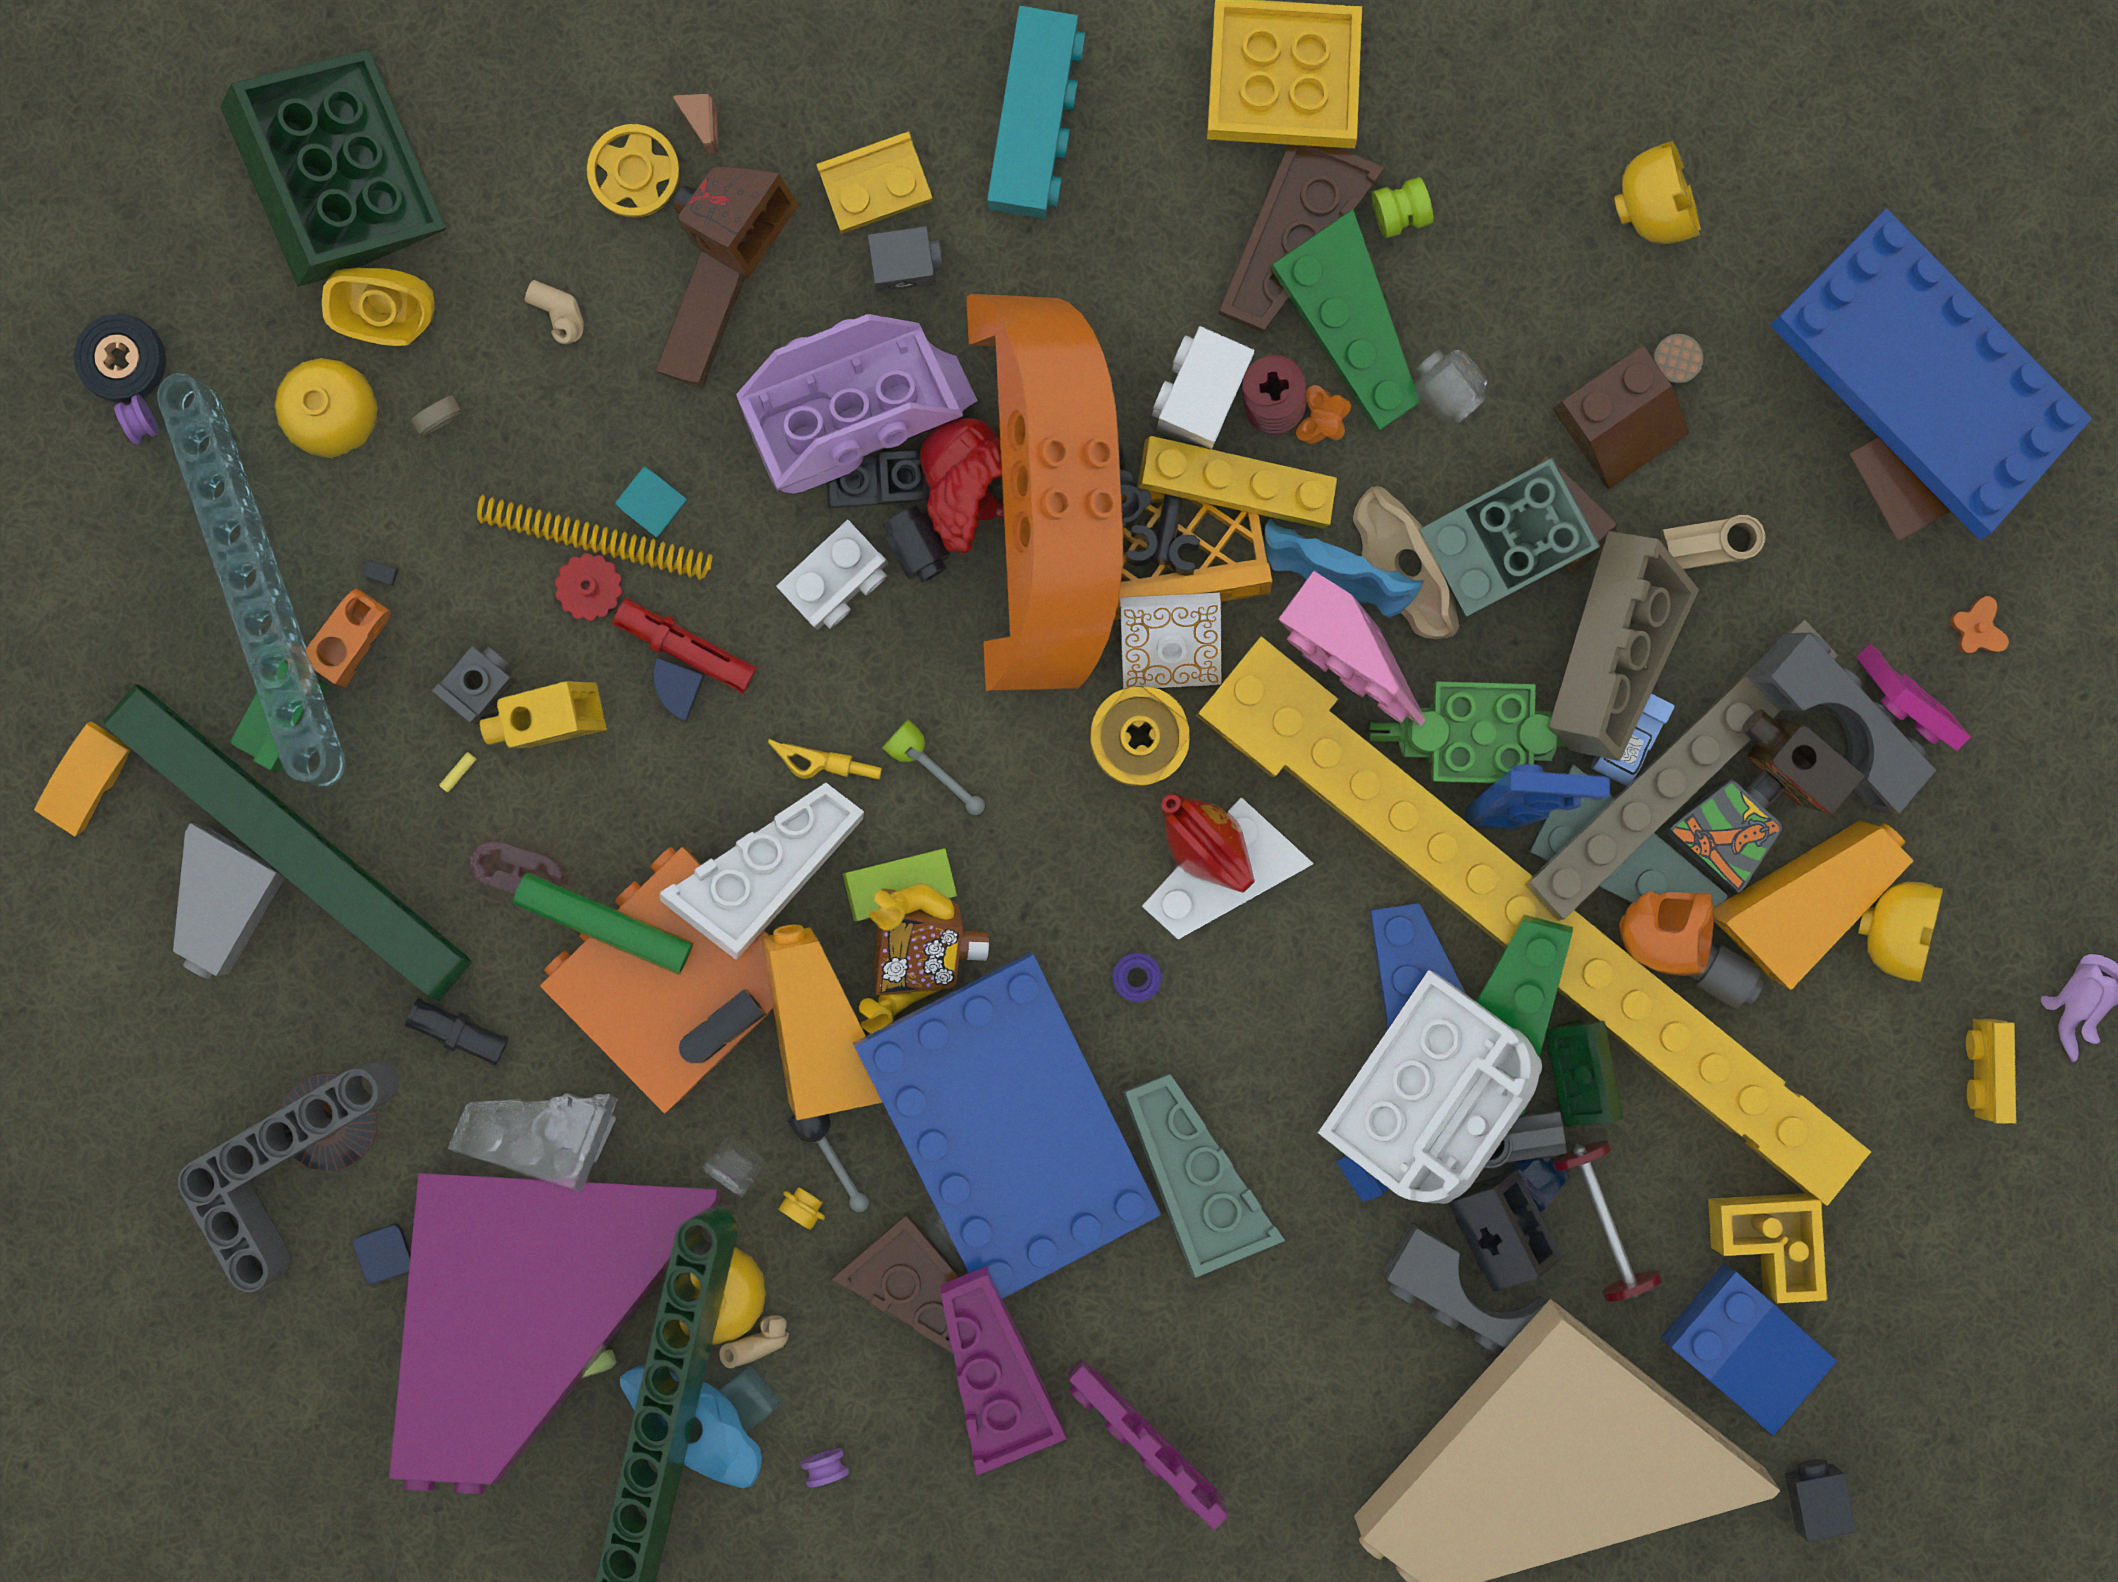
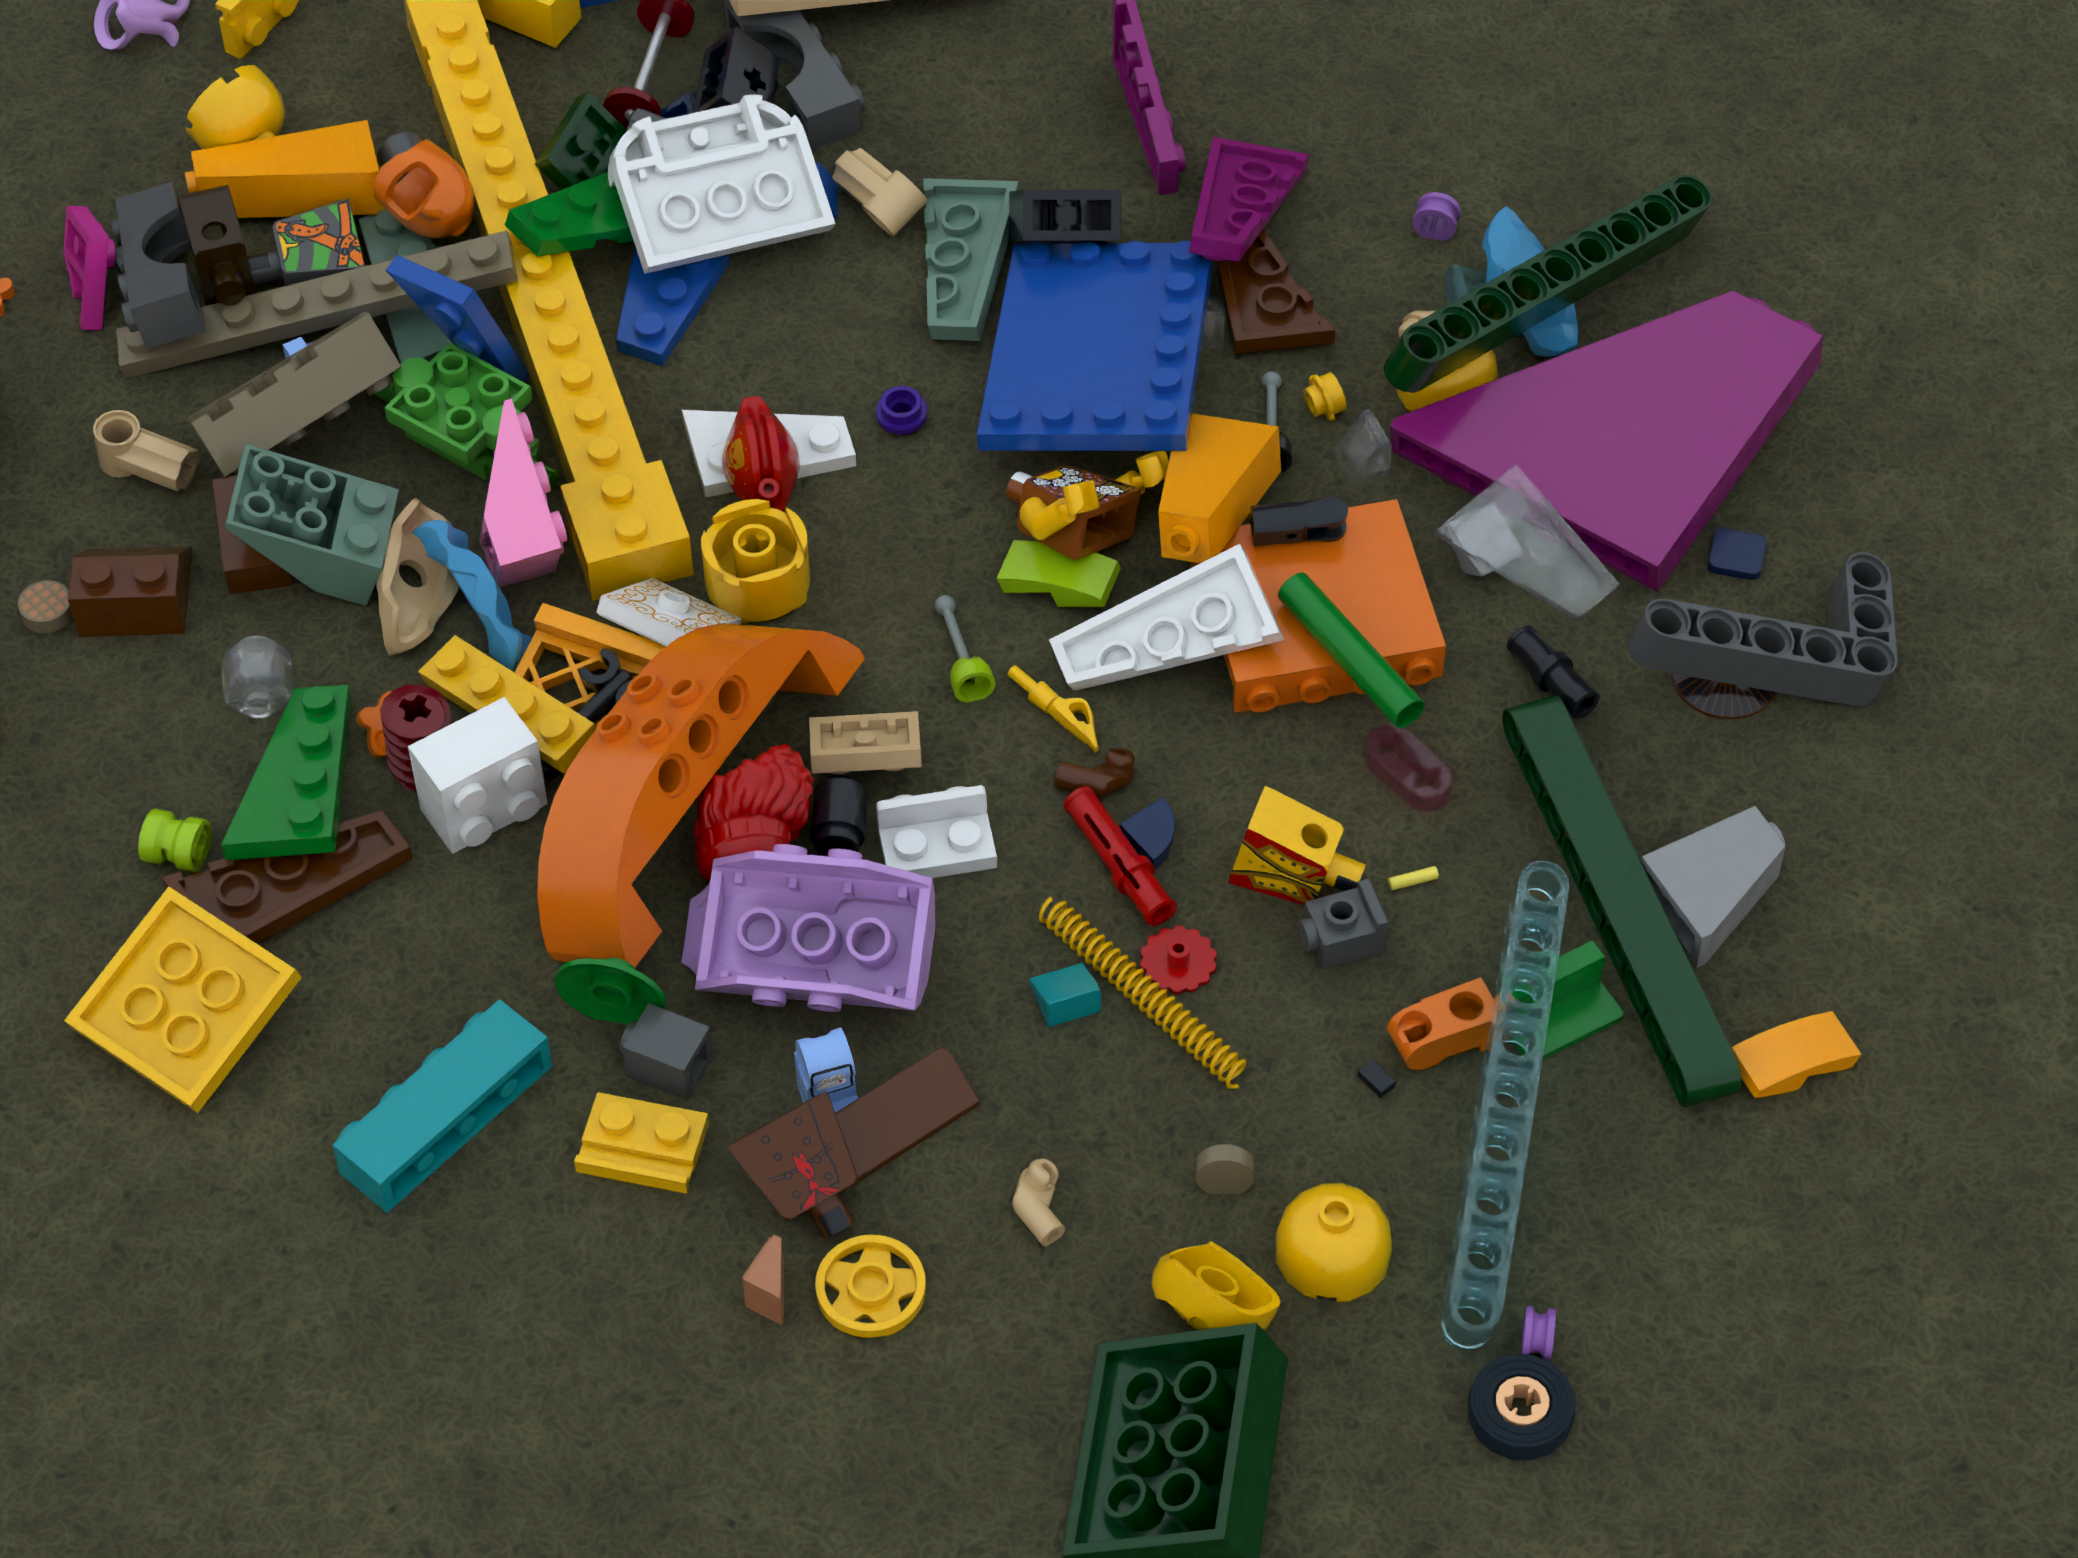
camera: 145 degrees left, 35 degrees down
(746, 711) = (1102, 779): none -> reddish brown arm
(765, 302) = (826, 1065): none -> light blue leg
(933, 612) = (865, 742): none -> tan bracket
(969, 269) = (607, 989): none -> green dish
(1125, 1255) = (1064, 215): none -> black brick
(1296, 1194) = (885, 196): none -> tan piece

